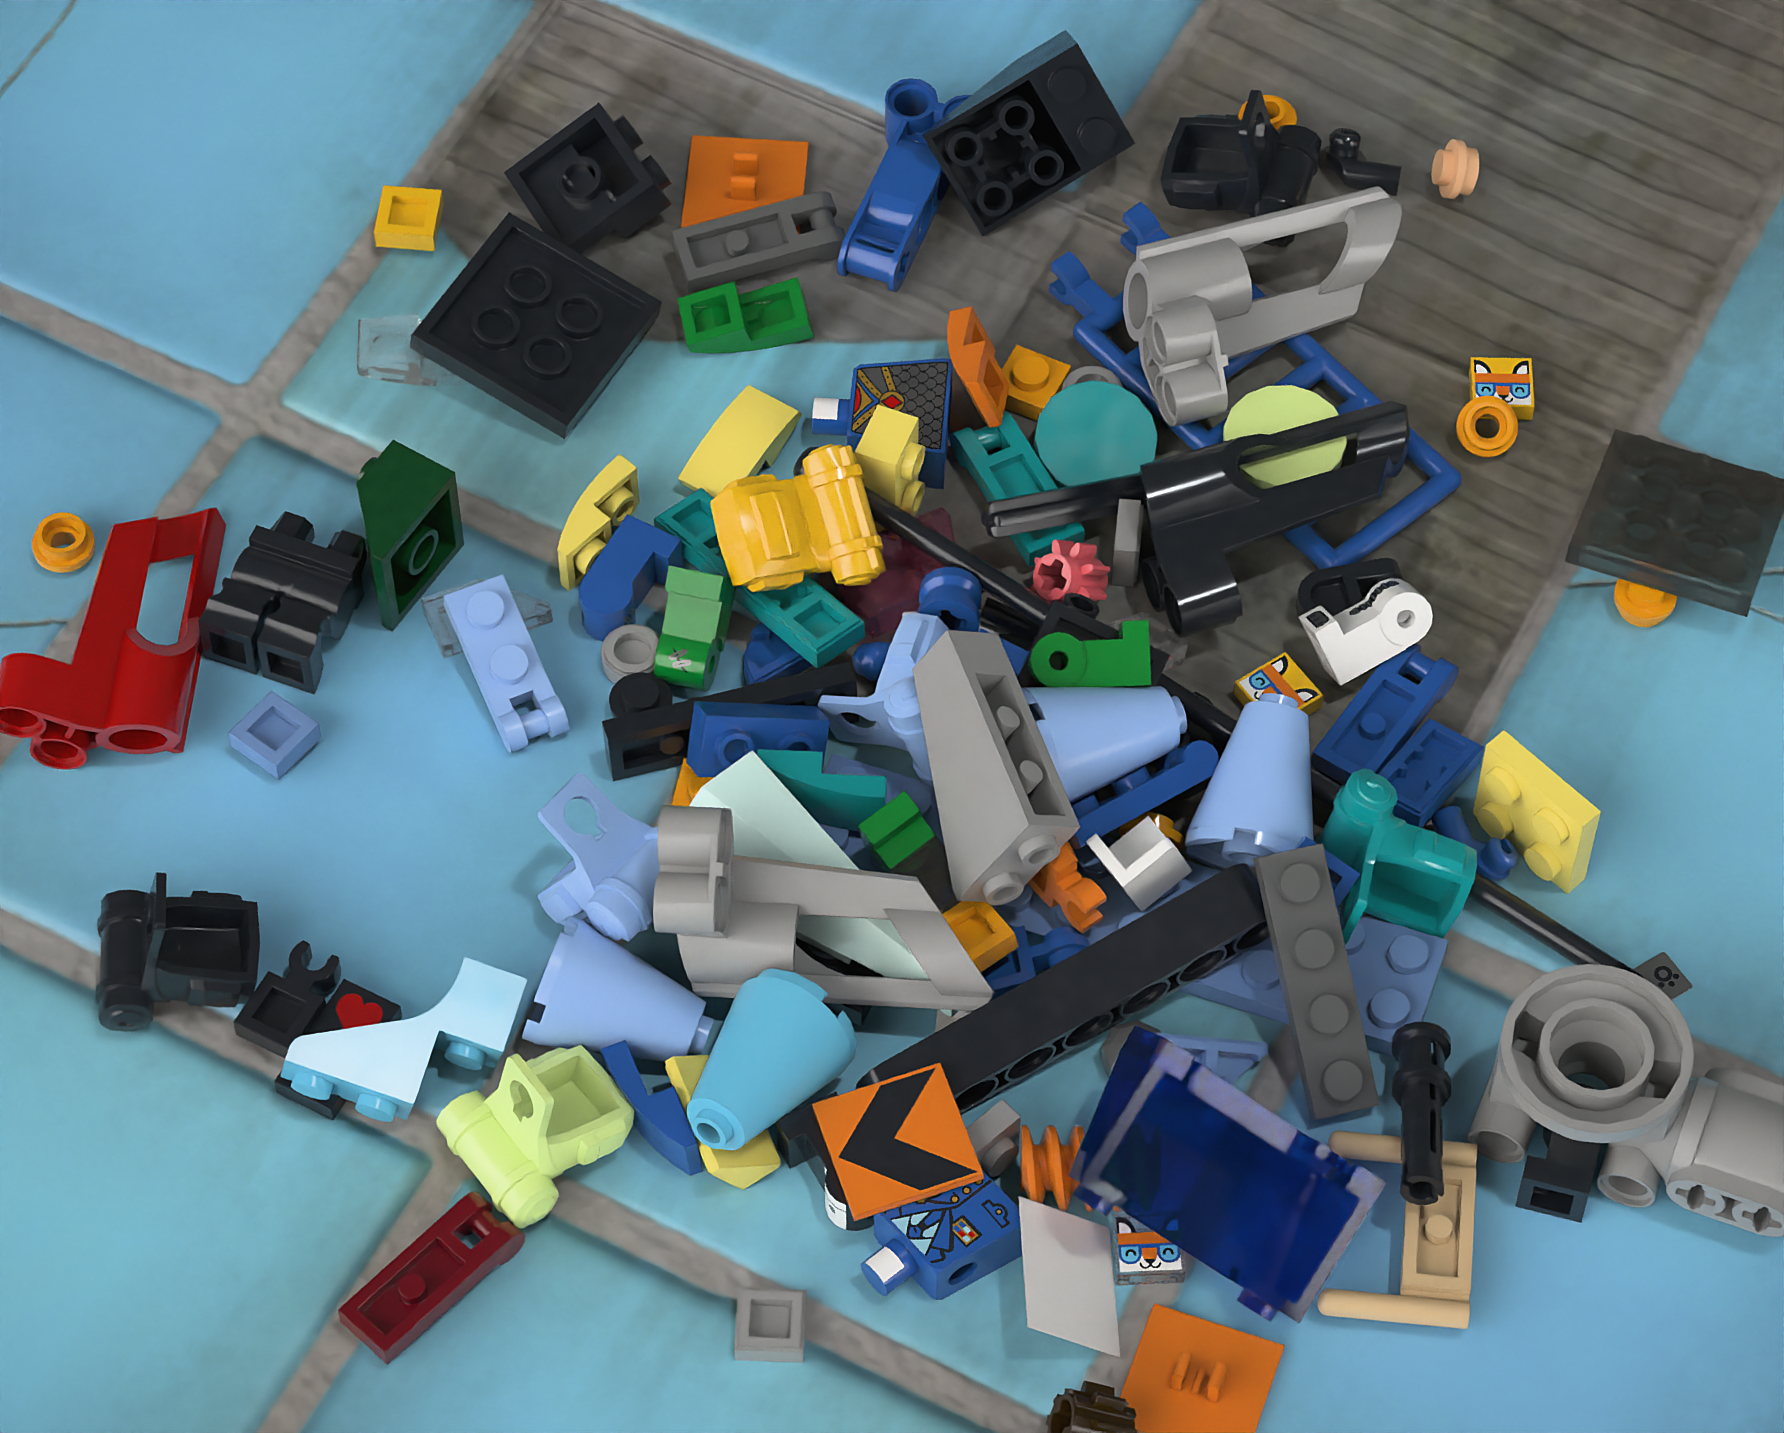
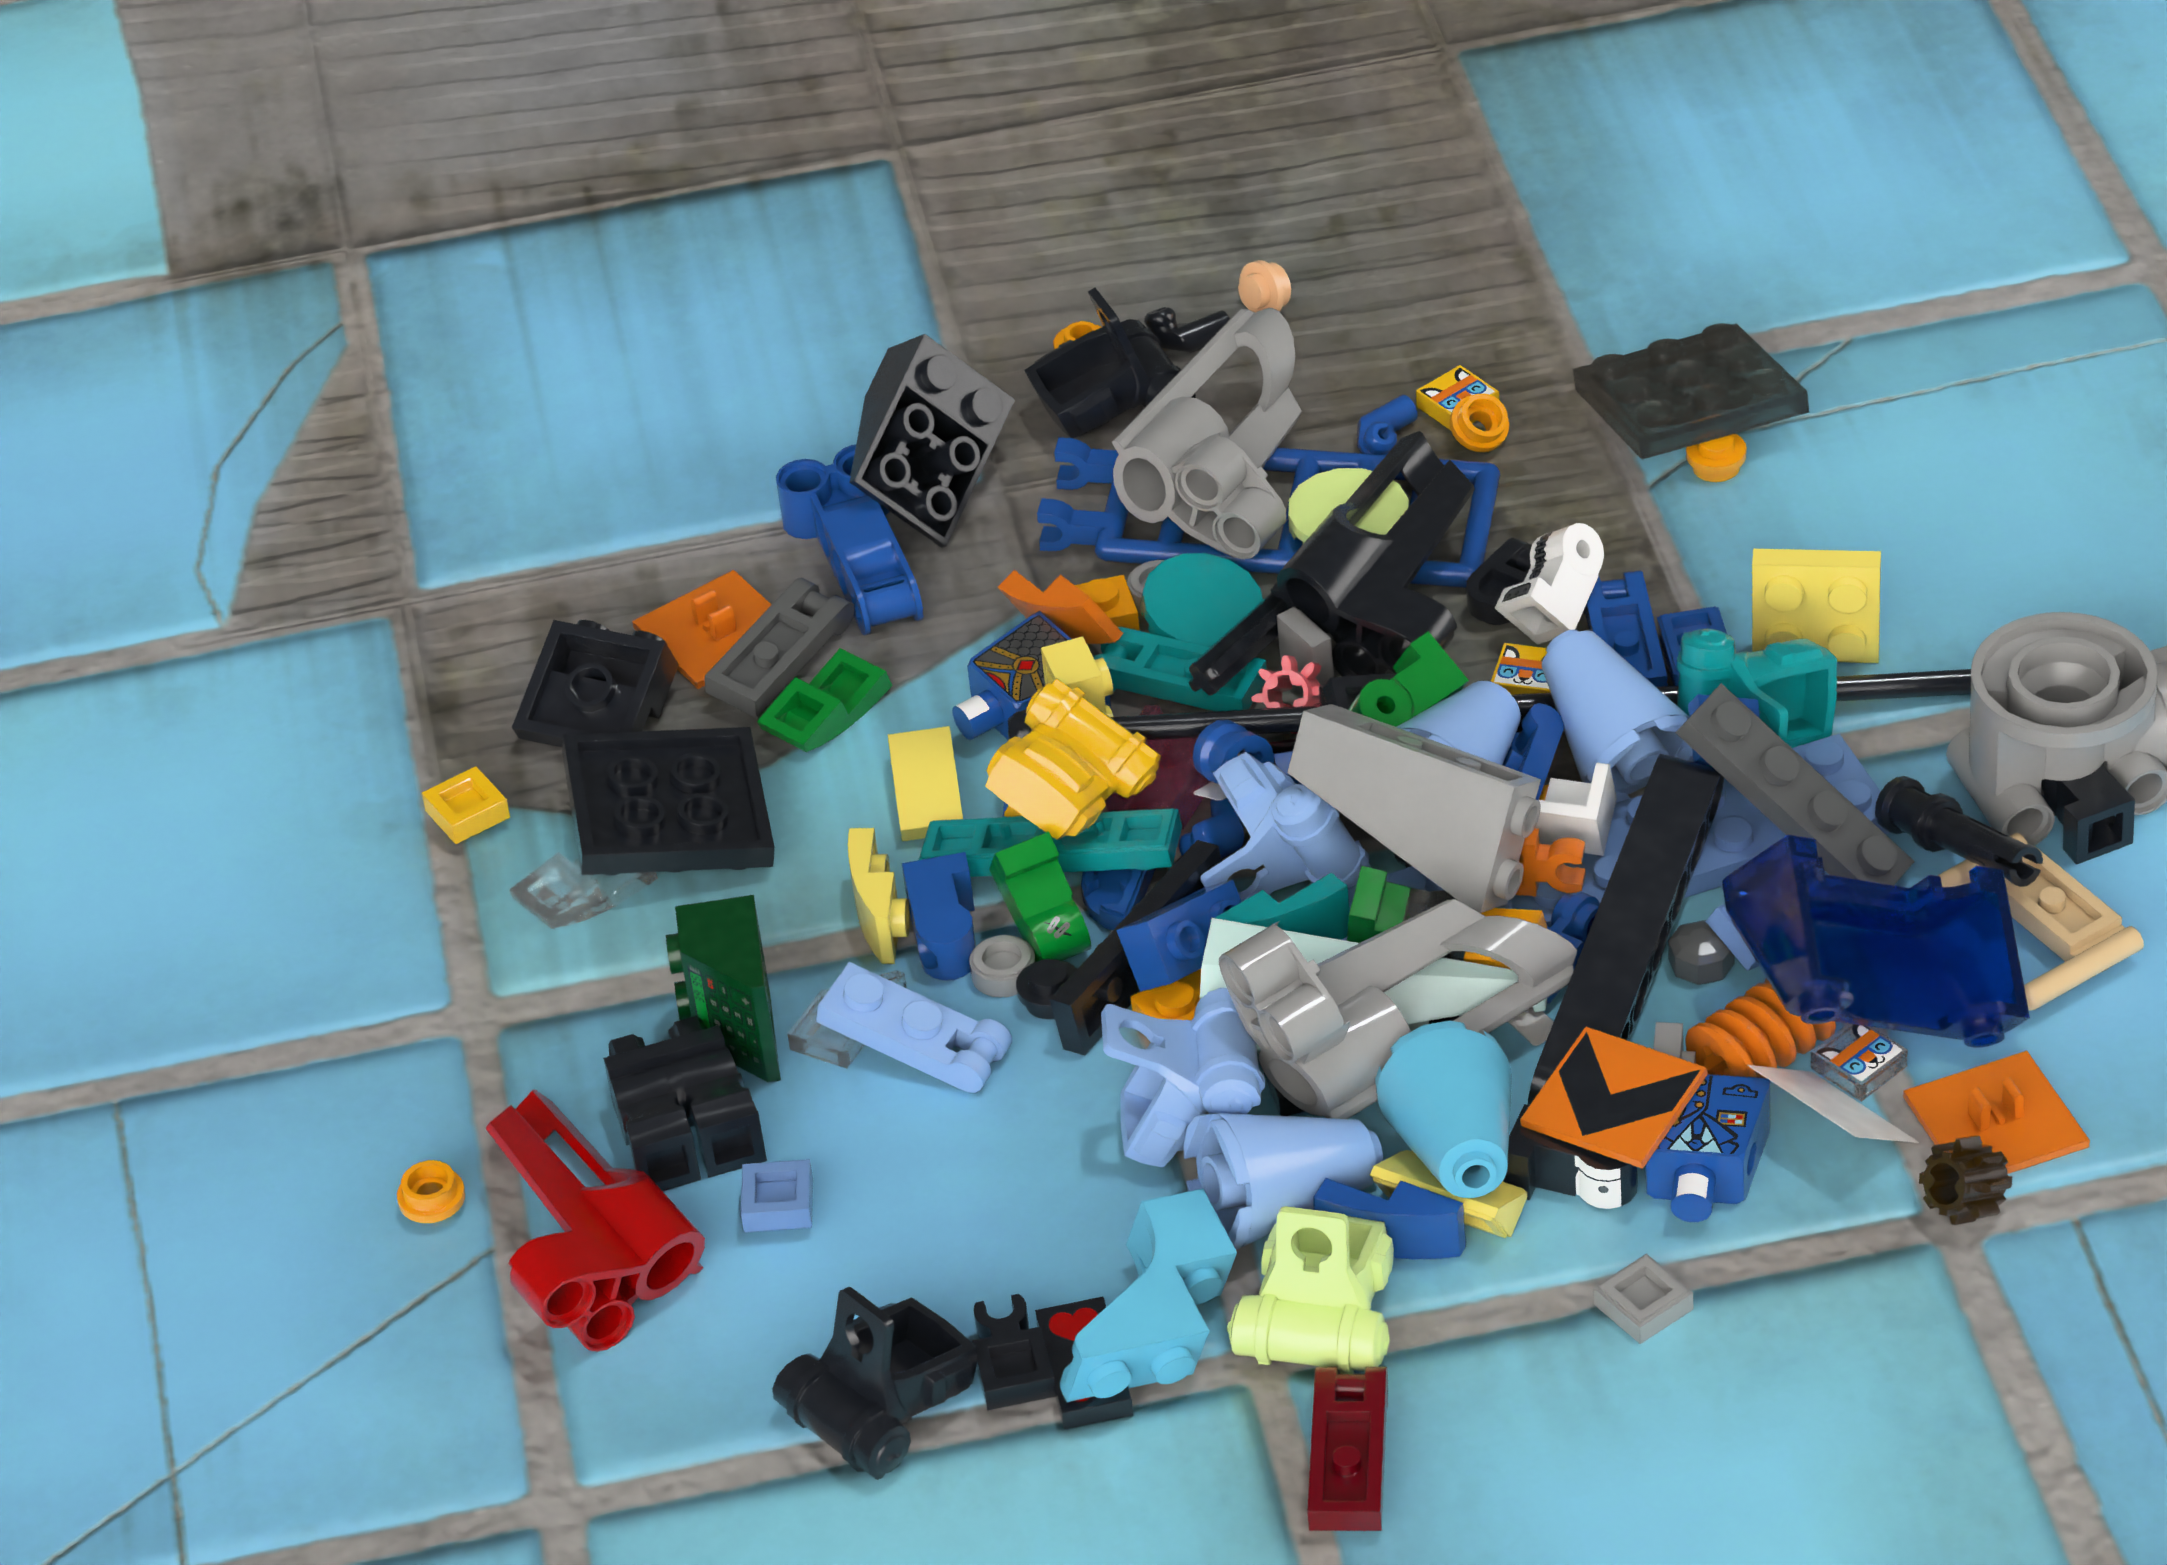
camera: 35 degrees left, 15 degrees down
(1409, 370) = (1378, 428): none -> blue arm

